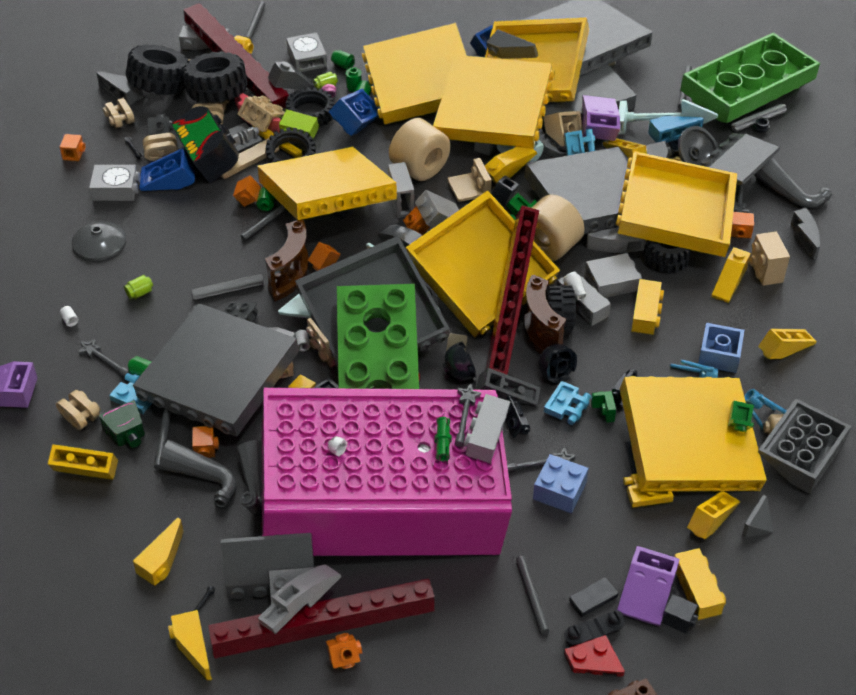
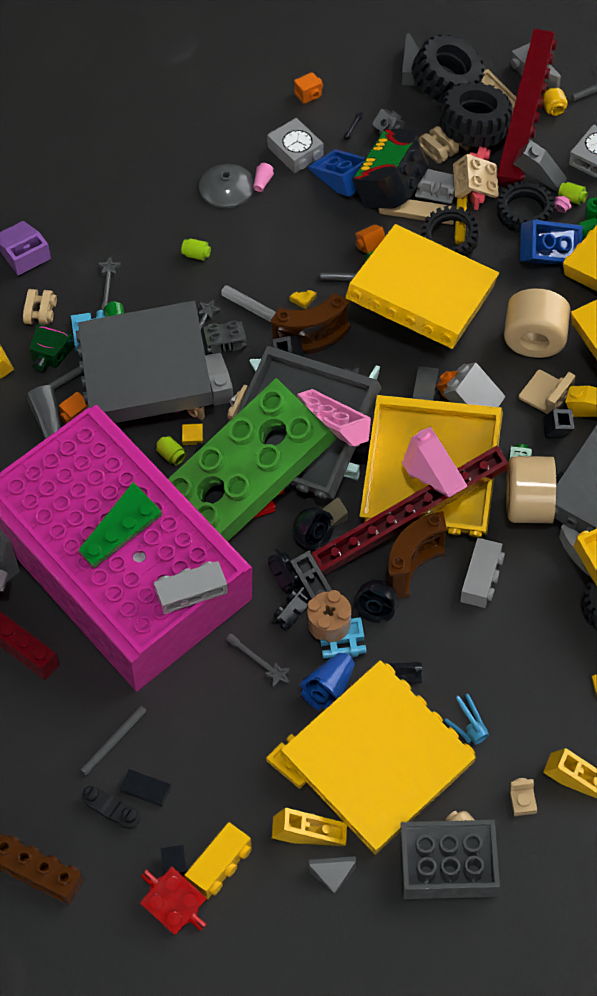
camera: 55 degrees right, 10 degrees up
(68, 316) = (127, 229): white hinge -> none
(113, 116) = (372, 86): tan brick -> none
(117, 214) = (263, 175): none -> bright pink cone
(159, 145) = (363, 140): tan brick -> none
(251, 258) = (303, 299): none -> yellow tile
(289, 283) = (289, 344): none -> black brick
(300, 121) = (488, 216): lime brick -> none
(323, 256) = (344, 347): orange brick -> none
(337, 445) = (75, 495): white hinge -> none
(390, 436) = (121, 524): none -> green wing
(405, 191) = (479, 342): light grey brick -> none
(419, 271) = (340, 419): none -> bright pink wedge
(443, 439) = (150, 562): green pin -> none
(467, 396) = (217, 552): dark grey piece -> none
(495, 249) = (431, 464): none -> bright pink wedge
(516, 203) = (556, 447): green bracket -> none
(551, 392) = (329, 616): none -> medium nougat brick
(560, 483) = (241, 688): medium blue brick -> none
(562, 301) = (438, 561): black tyre -> none
(576, 282) = (476, 554): white cone -> none
(594, 657) = (84, 825): wing -> none
(603, 429) = (328, 681): none -> blue cone
(606, 402) = (366, 662): green bracket -> none
(613, 275) = (533, 579): light grey brick -> none
(647, 307) = (518, 630): yellow brick -> none
(648, 585) = (182, 821): medium lavender slope -> none
(714, 630) = (173, 900): none -> red plate
(721, 347) = (515, 722): medium blue brick -> none
(741, 416) = (421, 783): green bracket -> none
(758, 400) = (465, 785): dark azure plant -> none
(778, 383) = (522, 797): none -> tan bracket

